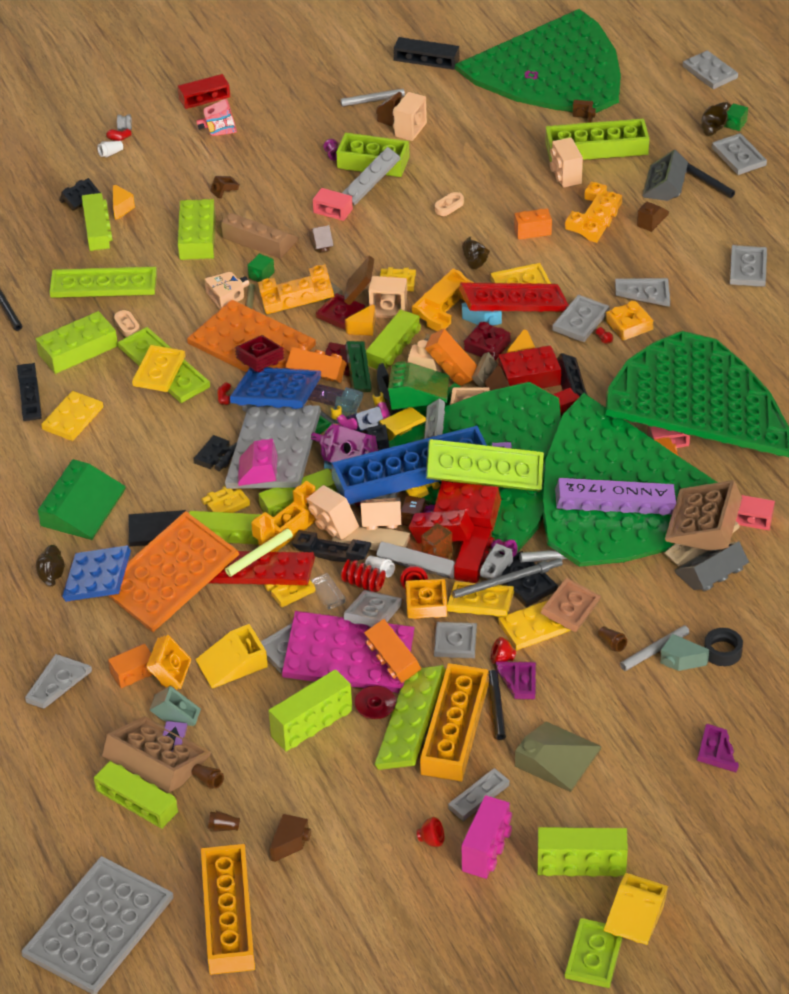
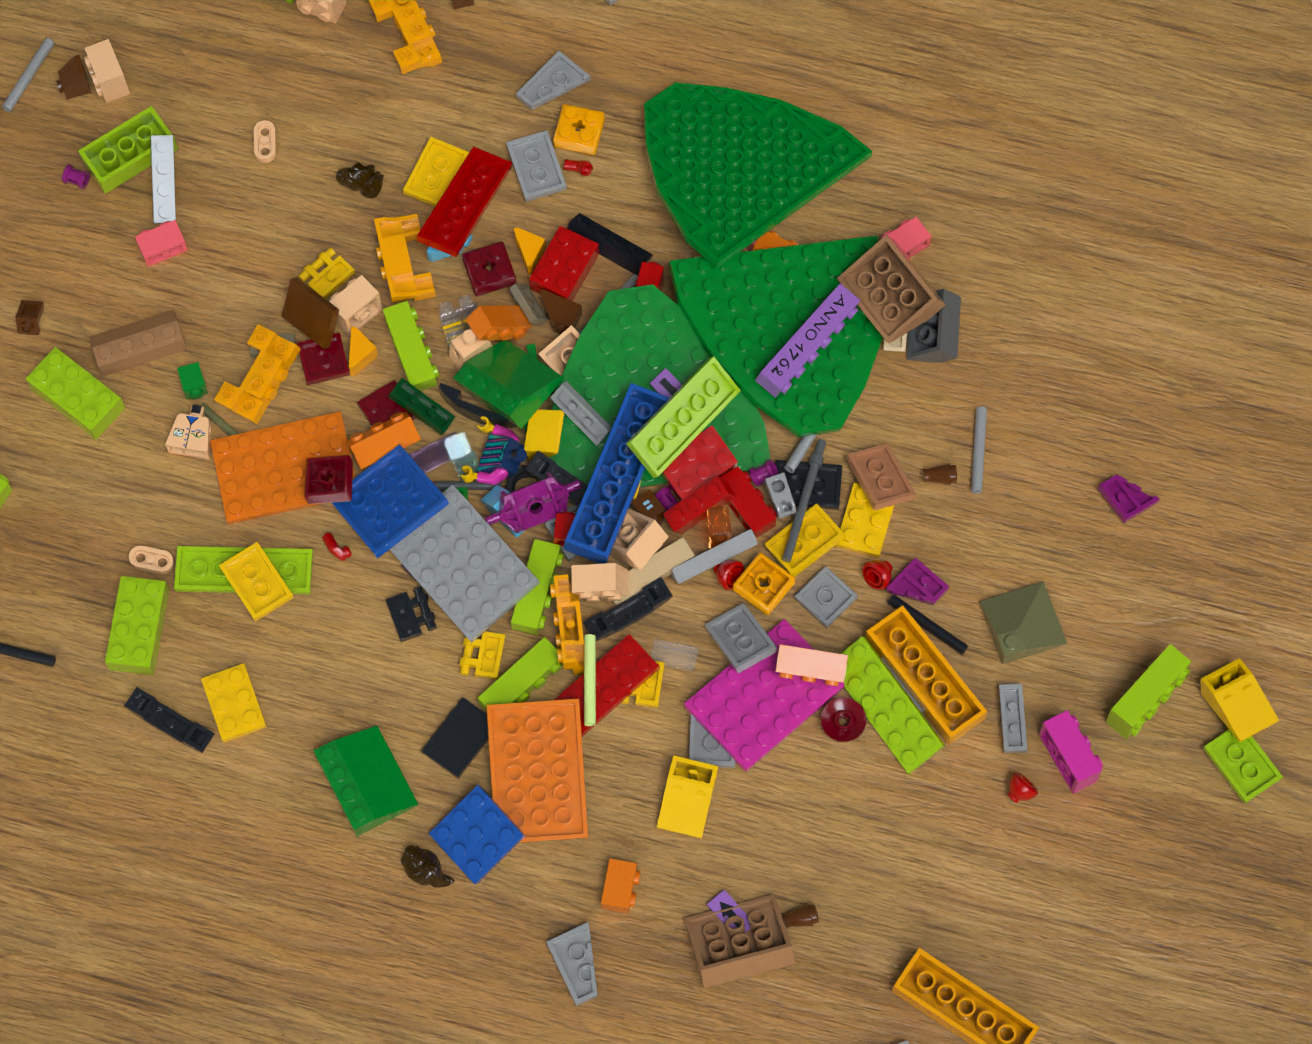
camera: 50 degrees left, 25 degrees up
(103, 282) = (66, 536): lime plate -> none
(136, 794) = (772, 991): lime brick -> none
(168, 662) = (651, 855): light orange brick -> none
(174, 707) = (701, 887): sand green slope -> none
(223, 822) = (863, 943): reddish brown cone -> none
(258, 463) = (487, 599): dark pink slope -> none
(289, 837) = (927, 901): reddish brown slope -> none
(310, 710) = (813, 783): lime brick -> none
(321, 238) = (202, 293): slope -> none
(363, 577) = (691, 612): red piece -> none
(382, 564) = (688, 589): white cone -> none
(532, 223) = (370, 96): orange brick -> none
(683, 654) = (1007, 436): sand green slope -> none
(724, 635) = (1030, 382): black tyre -> none

